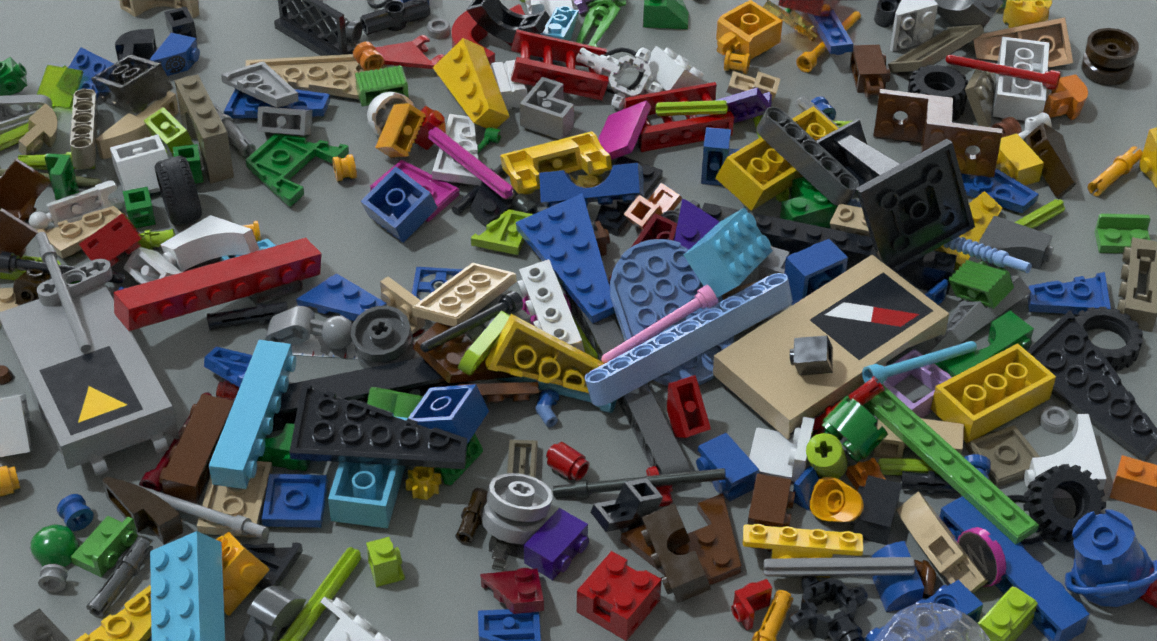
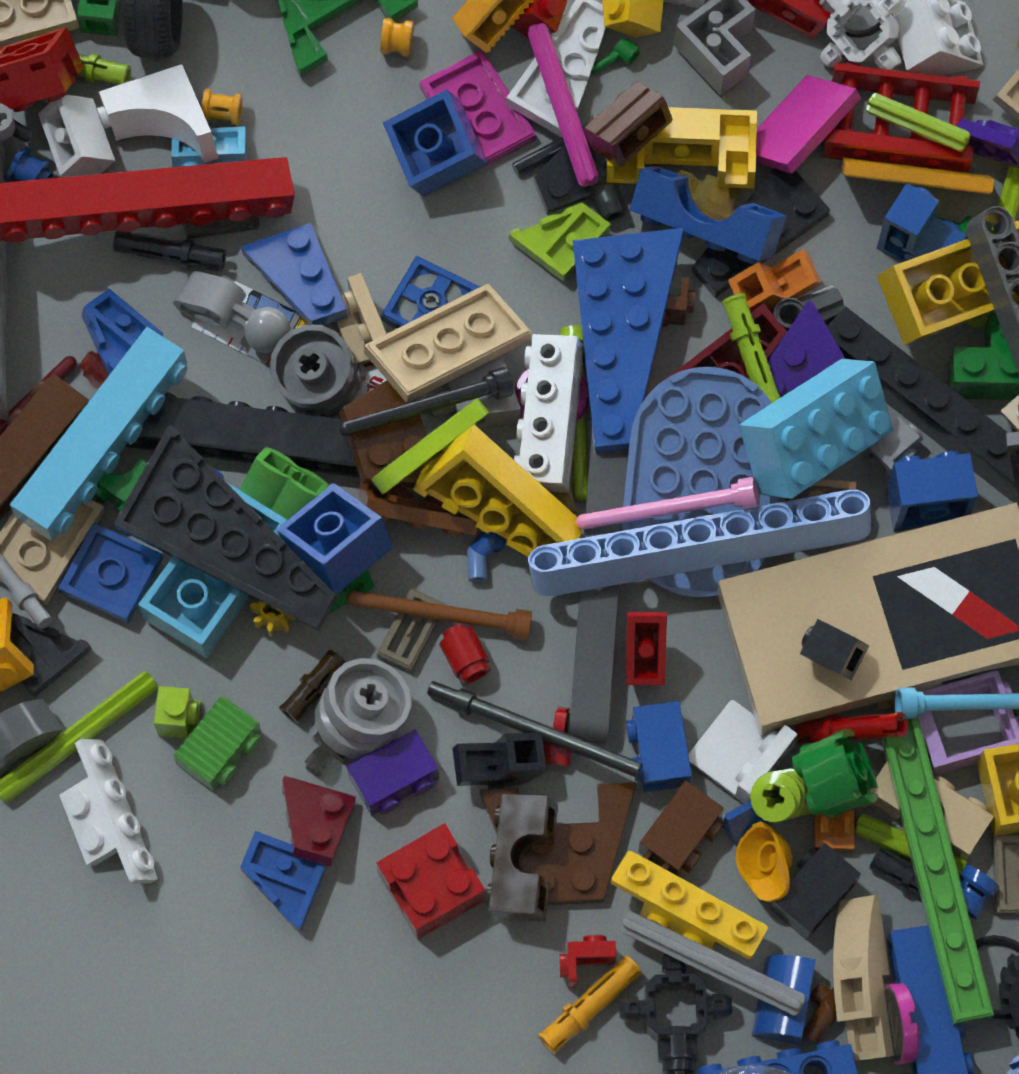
camera: 25 degrees right, 25 degrees up
(423, 571) = (218, 744): none -> bright green brick
(519, 152) = (628, 124): none -> reddish brown brick
(592, 435) = (514, 623): none -> dark orange piece
(652, 225) = (749, 344): none -> lime pin
(693, 135) = (917, 175): none -> light orange tile

